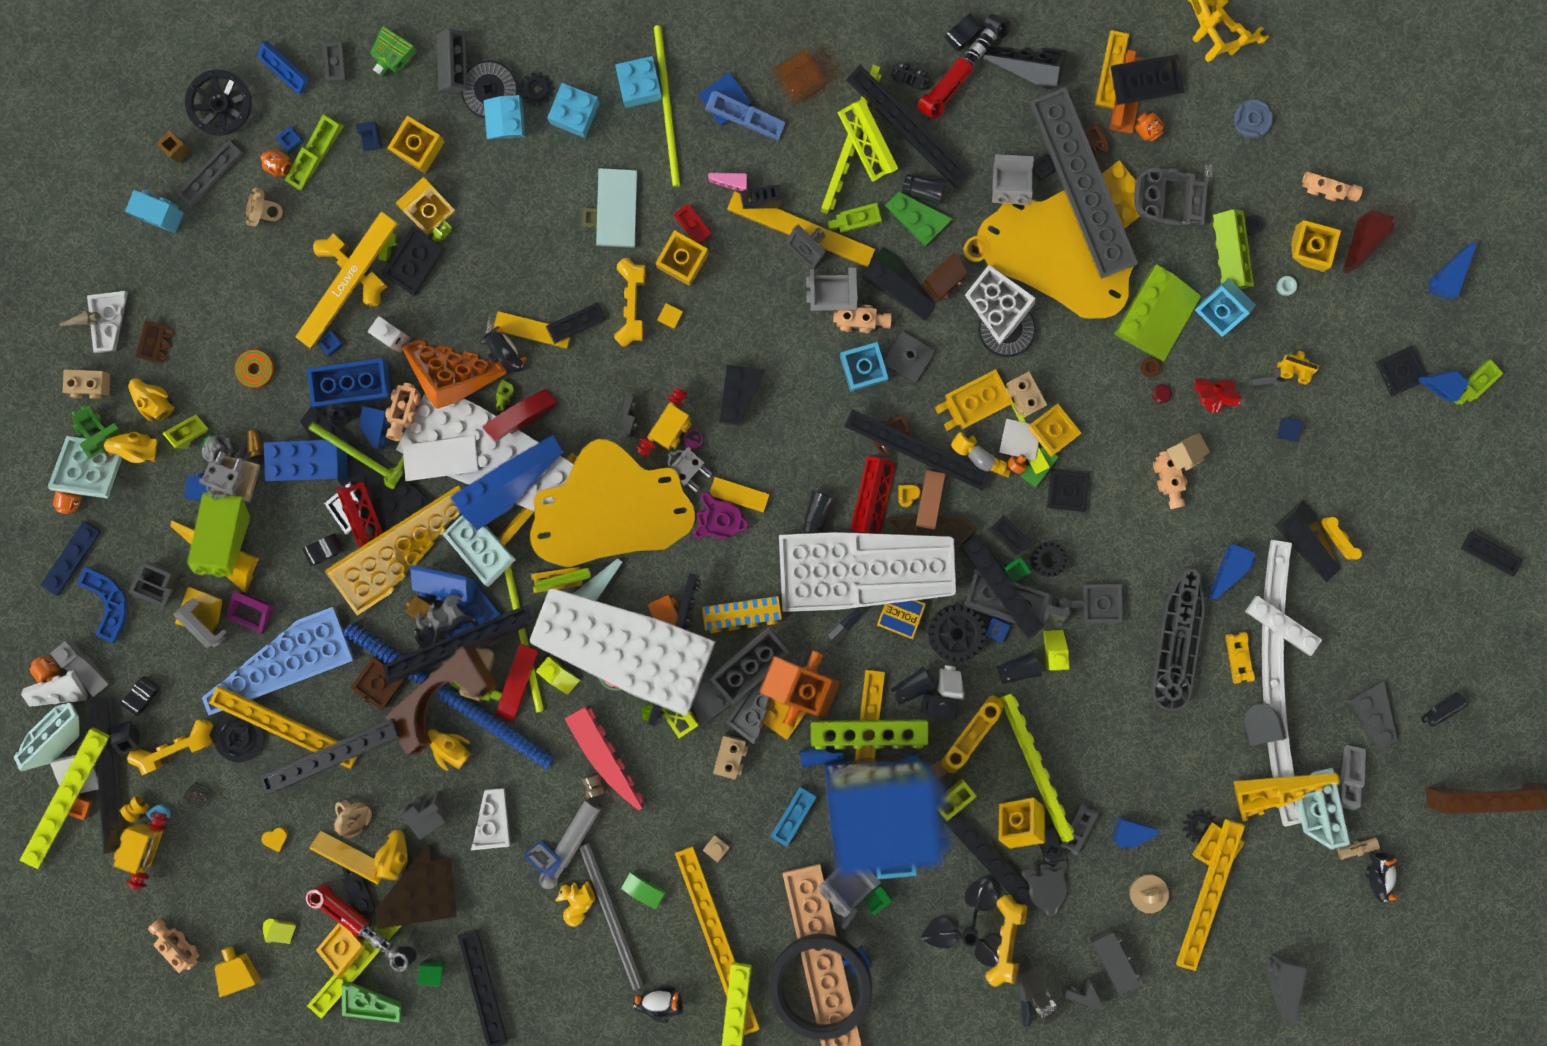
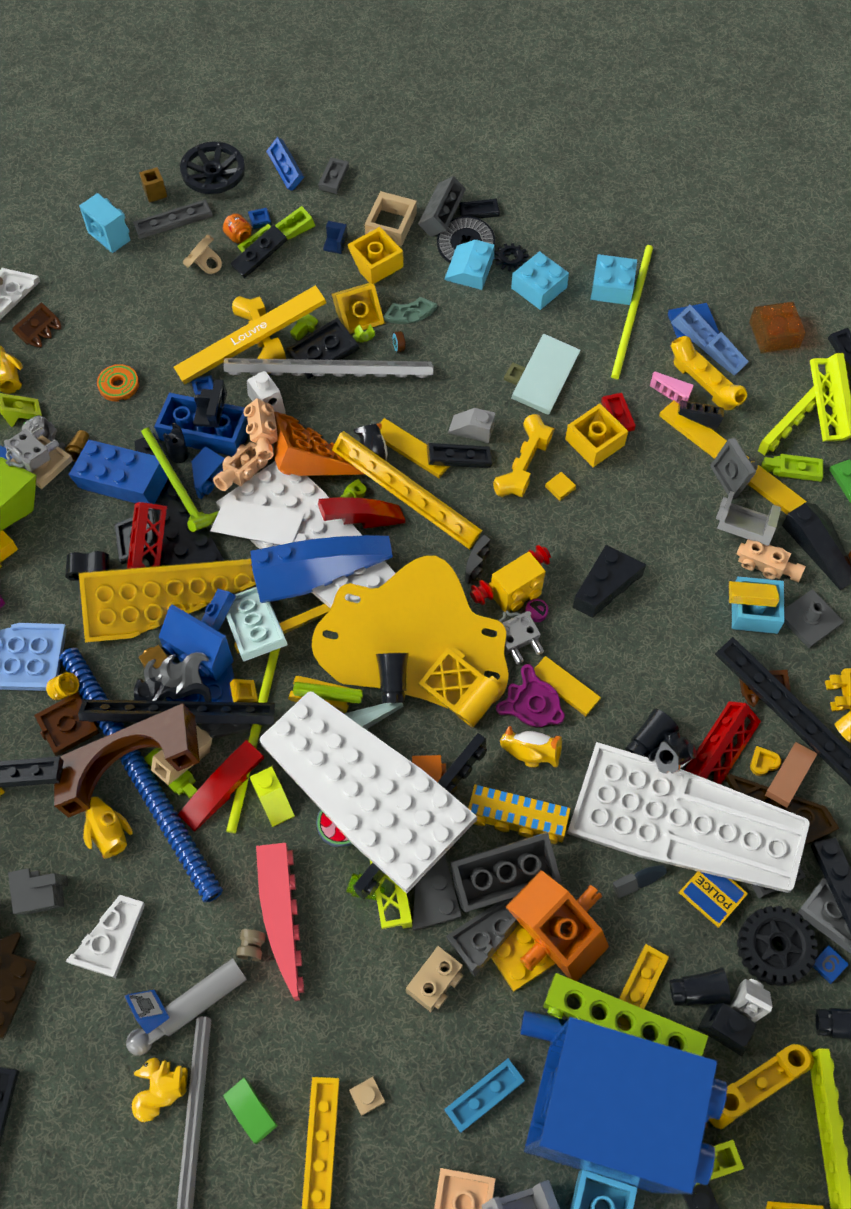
camera: 20 degrees right, 25 degrees down
(308, 181) = (259, 251): none -> black plate
(349, 370) = (210, 405): none -> black panel
(359, 658) = (62, 686): none -> yellow wheel
(391, 52) = (390, 180): bright green torso -> none
(402, 372) = (261, 428): none -> light nougat brick
(410, 74) = (396, 205): none -> tan window
(431, 282) = (320, 367): none -> light grey plate
(445, 548) = (218, 608): none -> blue plate
(473, 189) = (410, 312): none -> sand green tile
(476, 227) = (398, 341): none -> reddish brown tile
(486, 45) = (480, 208): none -> black tile
(497, 602) = (243, 691): none -> yellow tile
(546, 378) = (407, 490): none -> yellow tile
(574, 288) = (473, 424): none -> light grey slope
(606, 548) = (392, 676): none -> black plant
(676, 537) = (475, 700): none -> yellow piece
(733, 557) = (532, 747): none -> yellow animal
(753, 154) = (689, 360): none -> yellow plate
(838, 523) = (673, 753): none -> black animal
(856, 365) = (753, 594): none -> yellow slope

